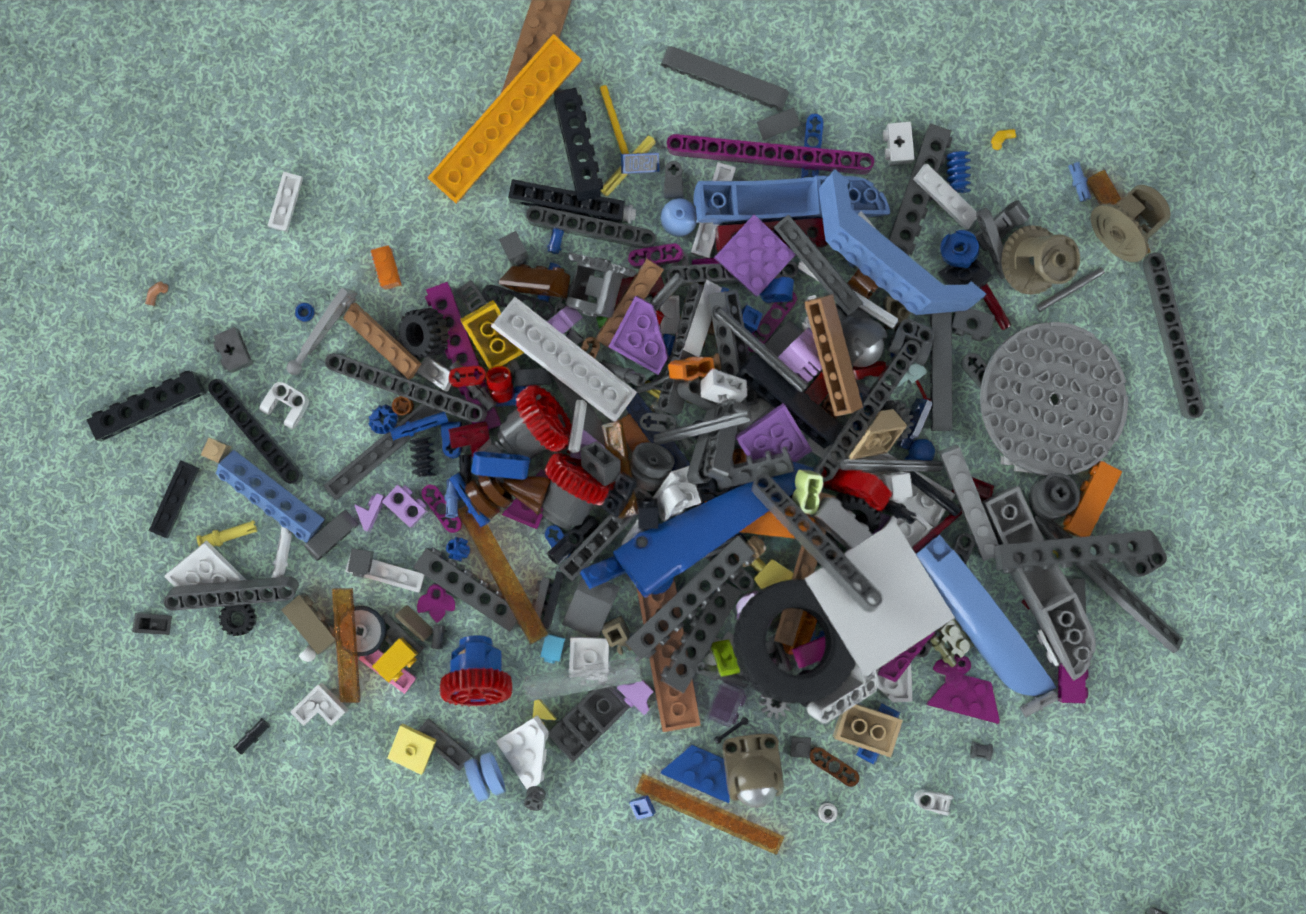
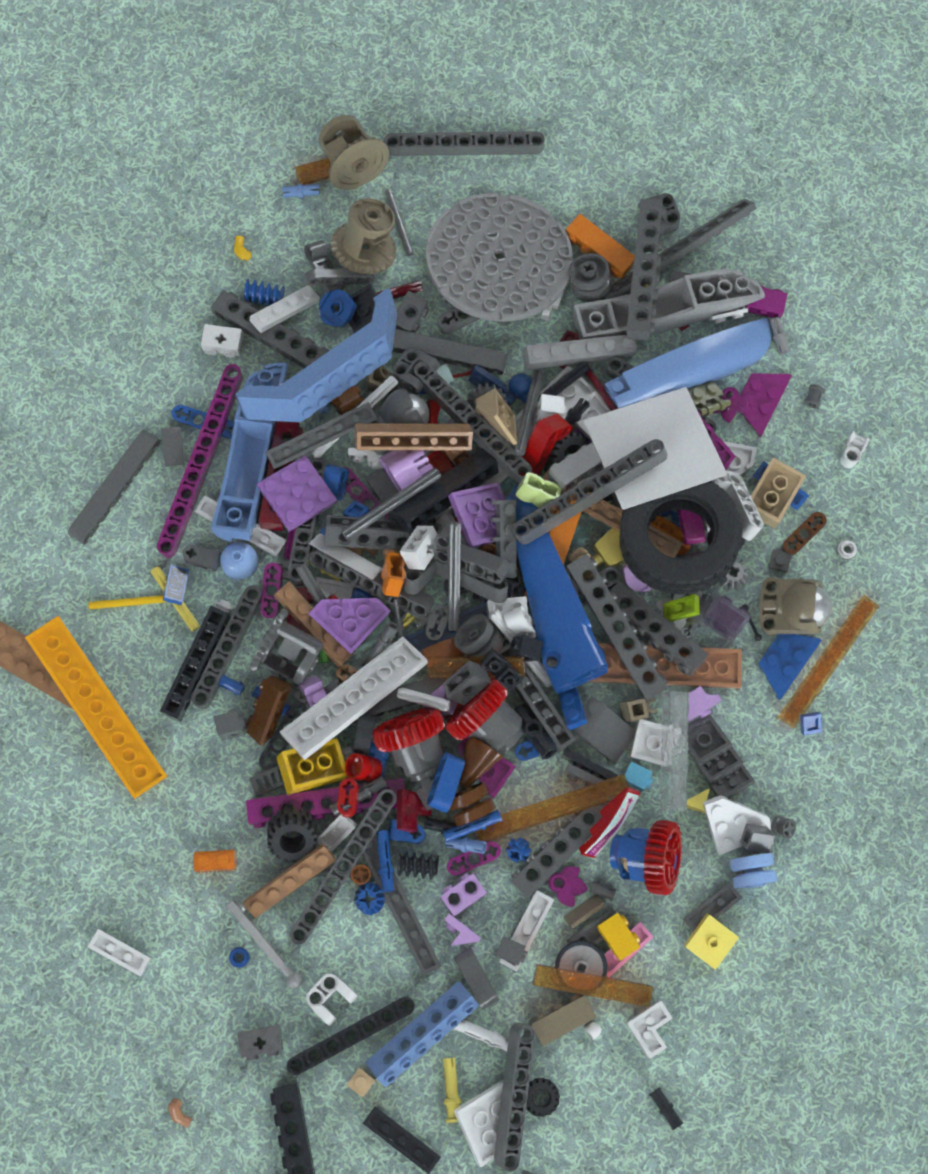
camera: 80 degrees left, 10 degrees down
(501, 632) = (612, 820): none -> slope
(516, 775) = (757, 838): none -> dark grey brick
(584, 188) = (187, 641): black brick -> none

